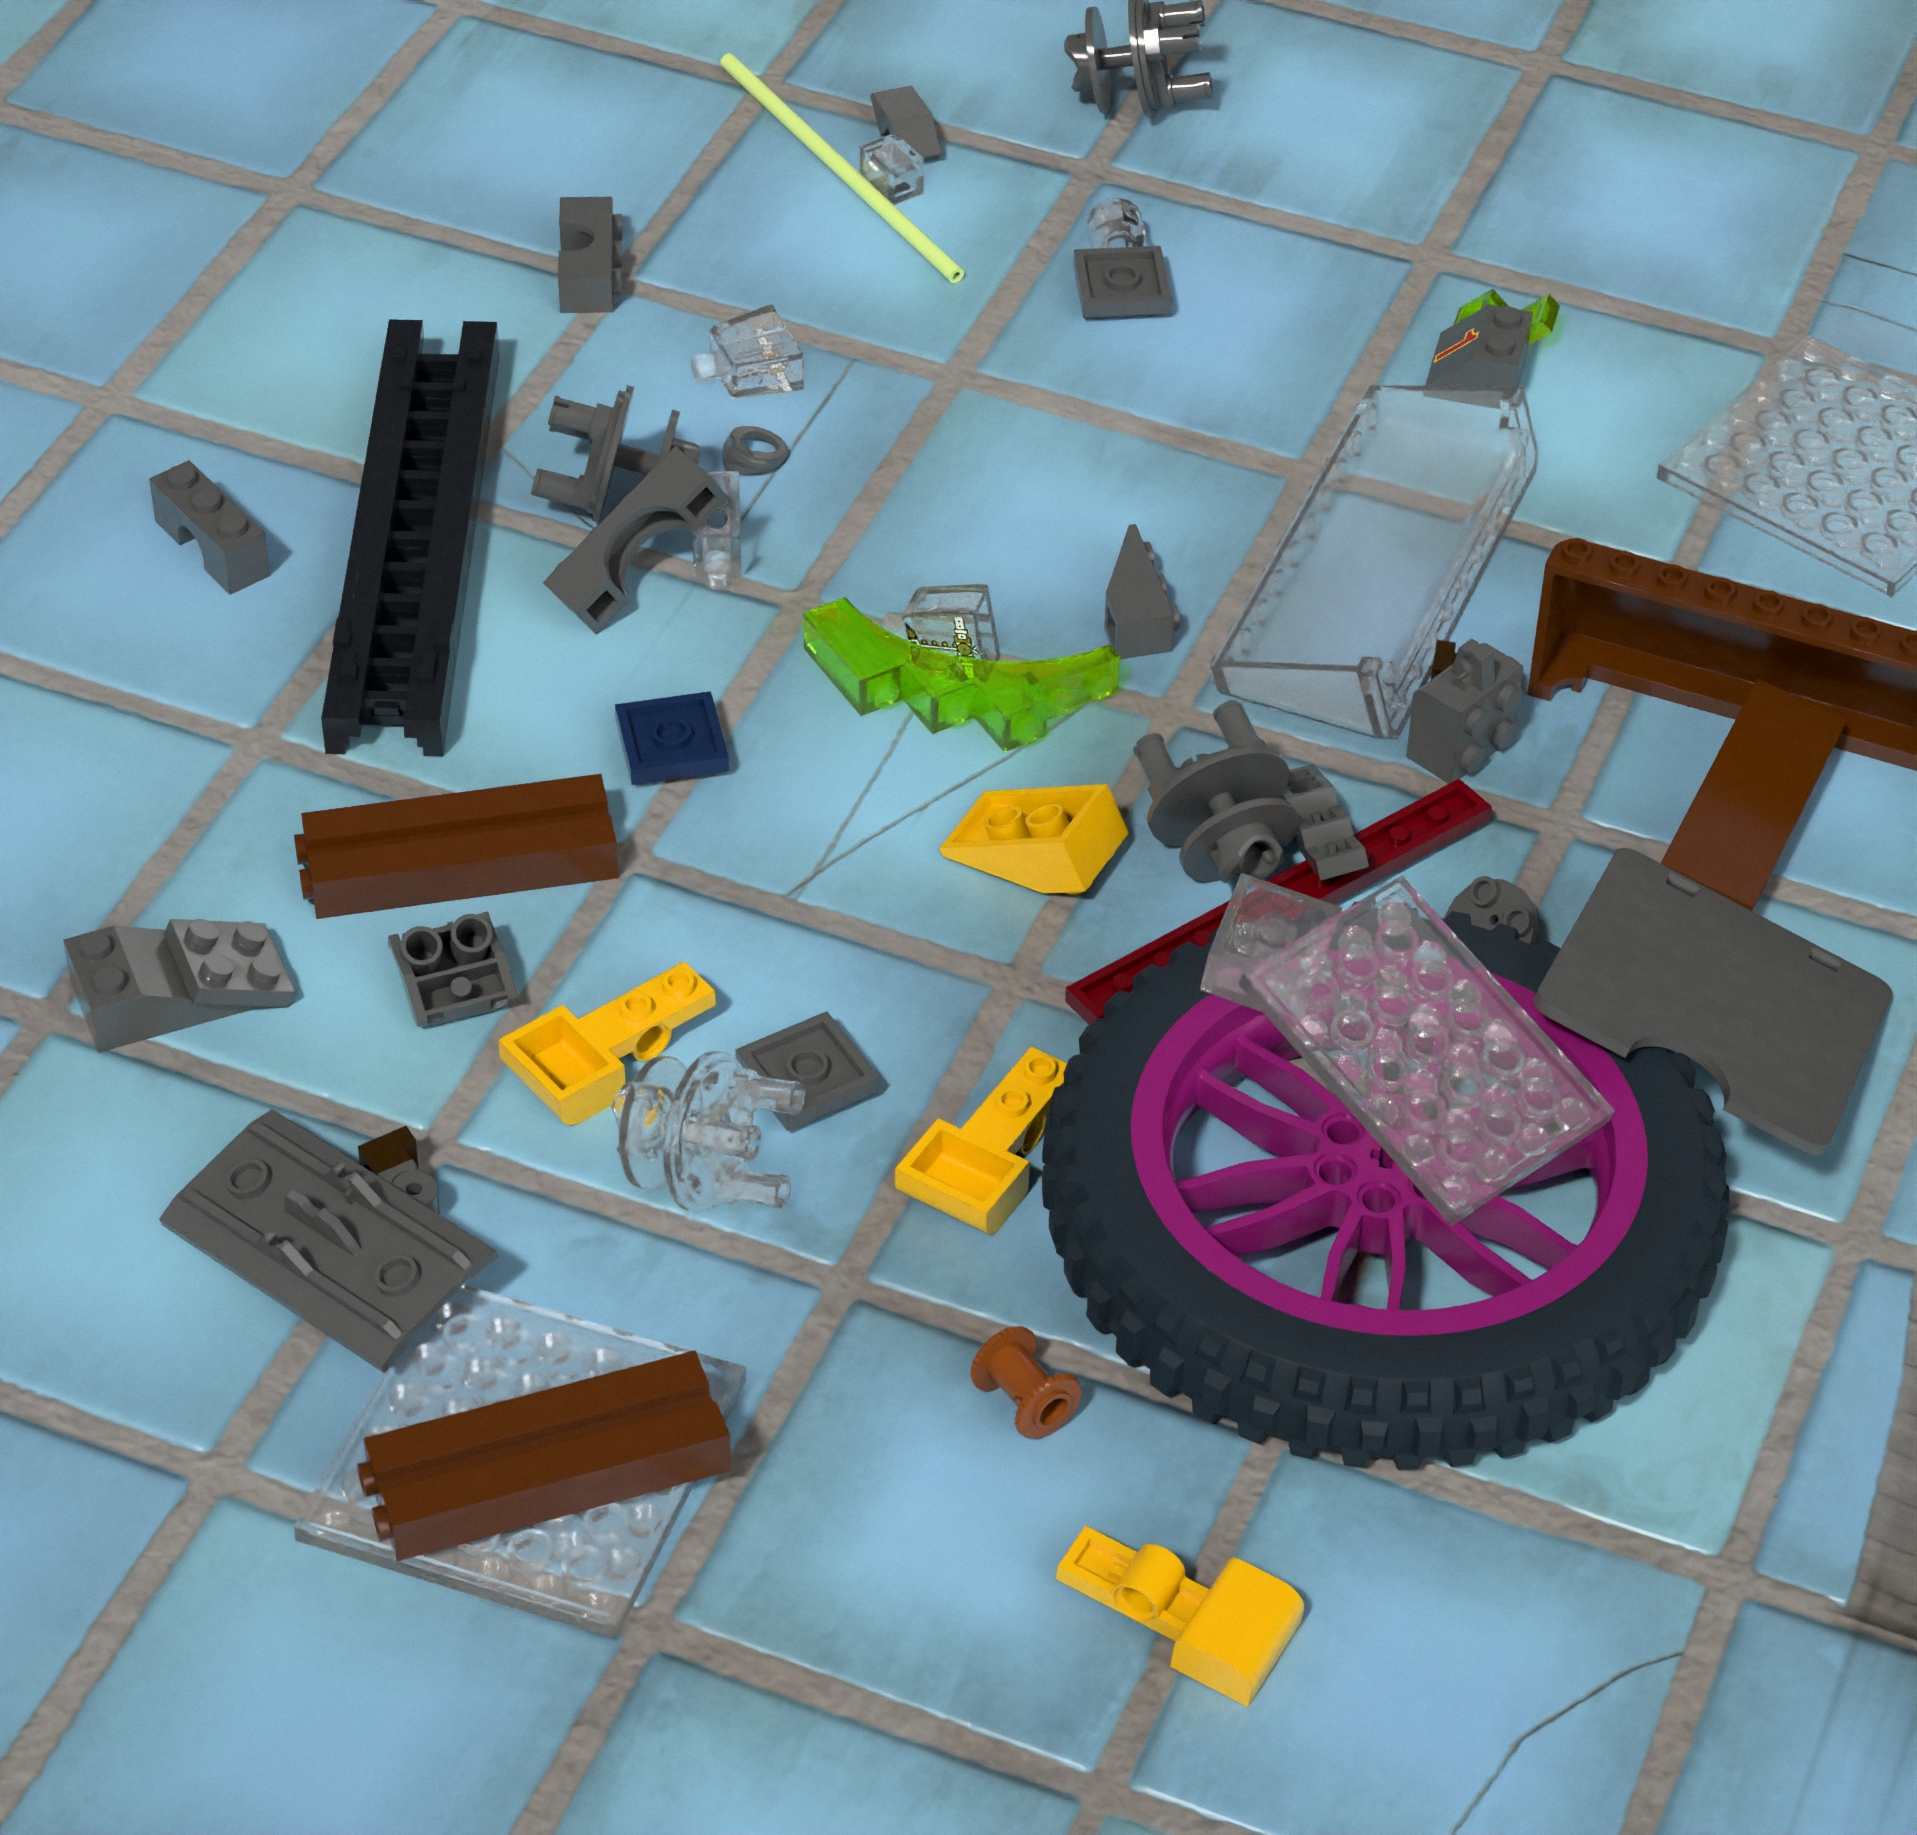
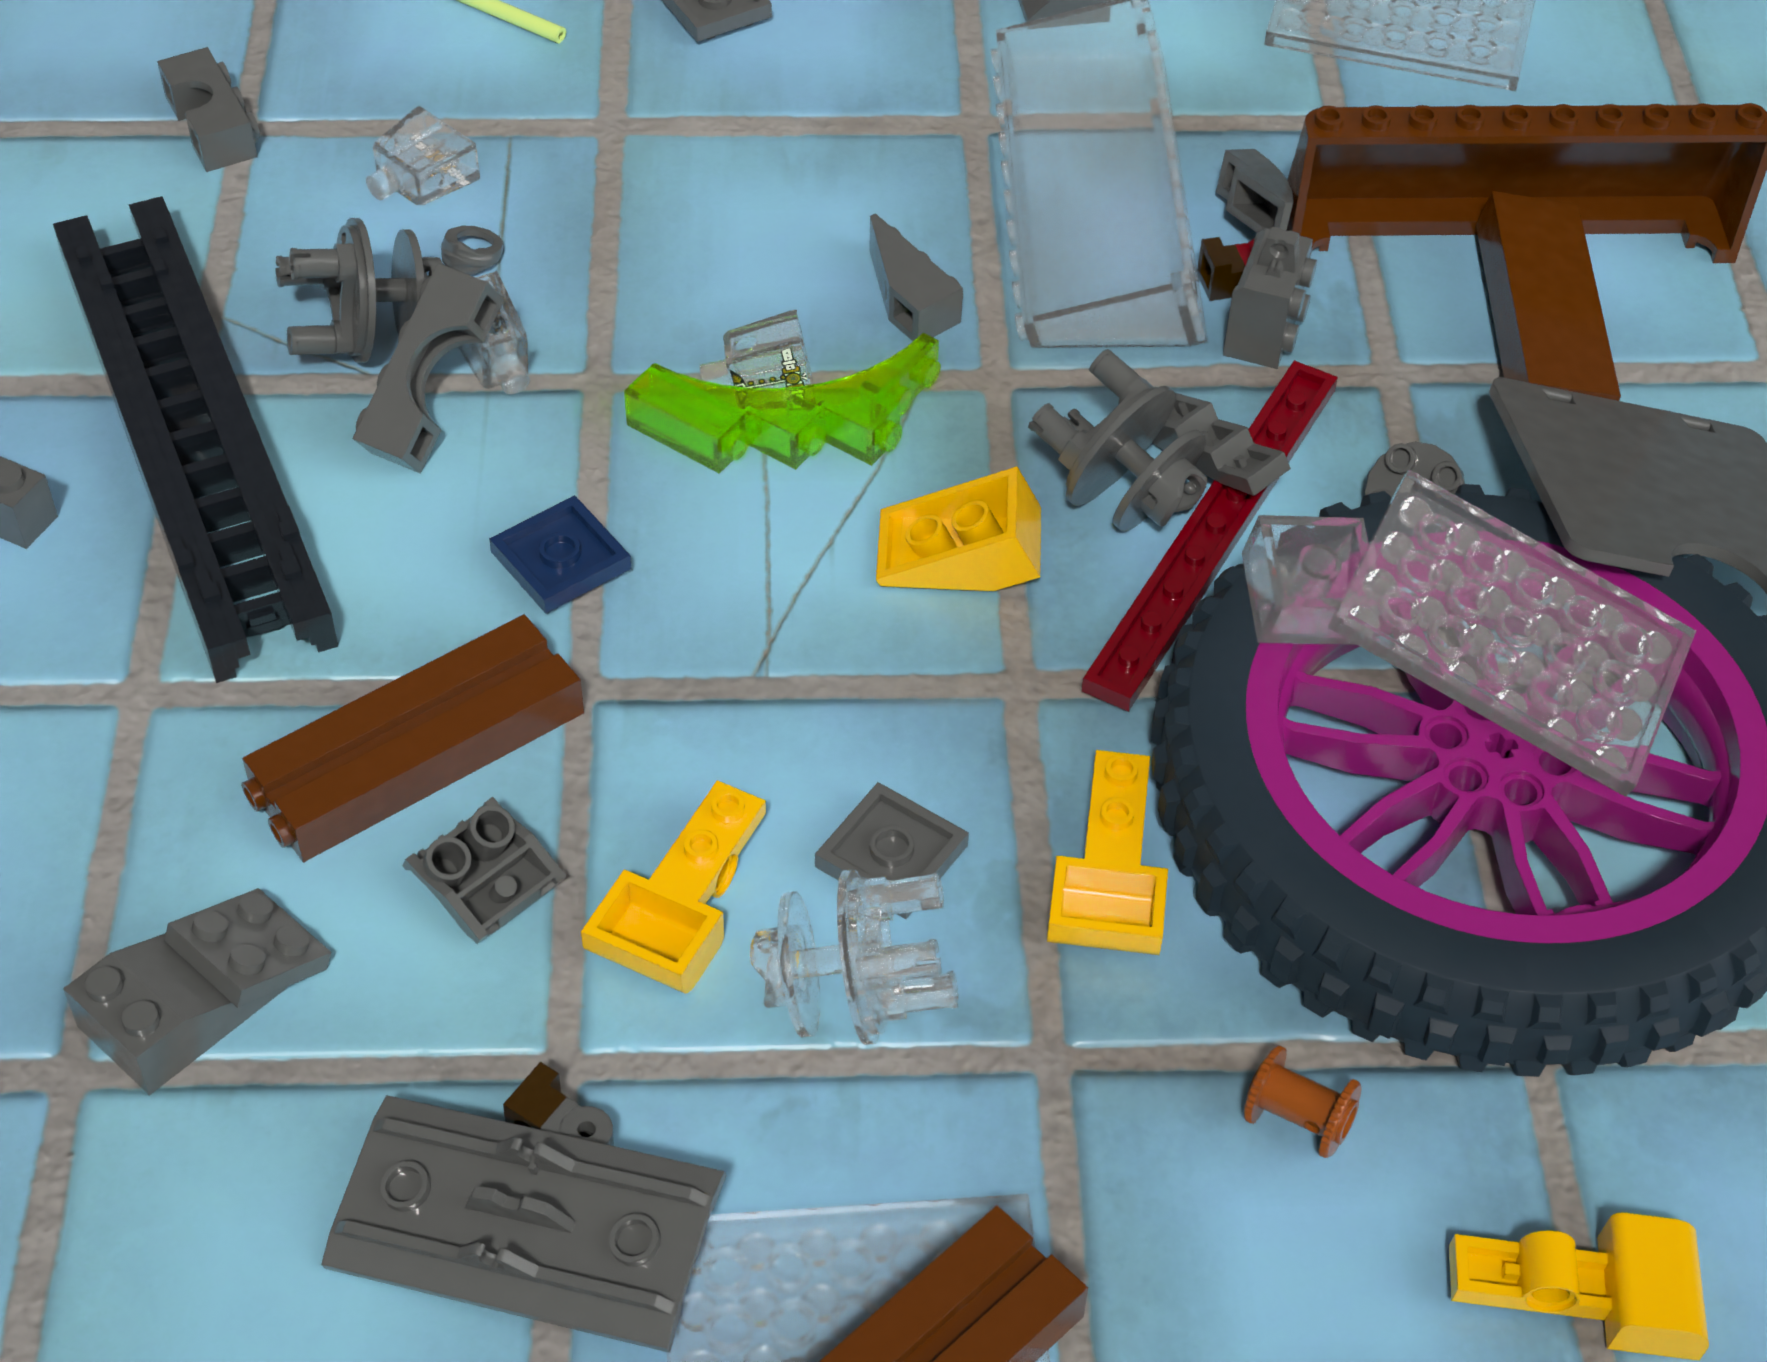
camera: 25 degrees left, 5 degrees up
(1517, 612) = (1255, 190): none -> dark grey slope

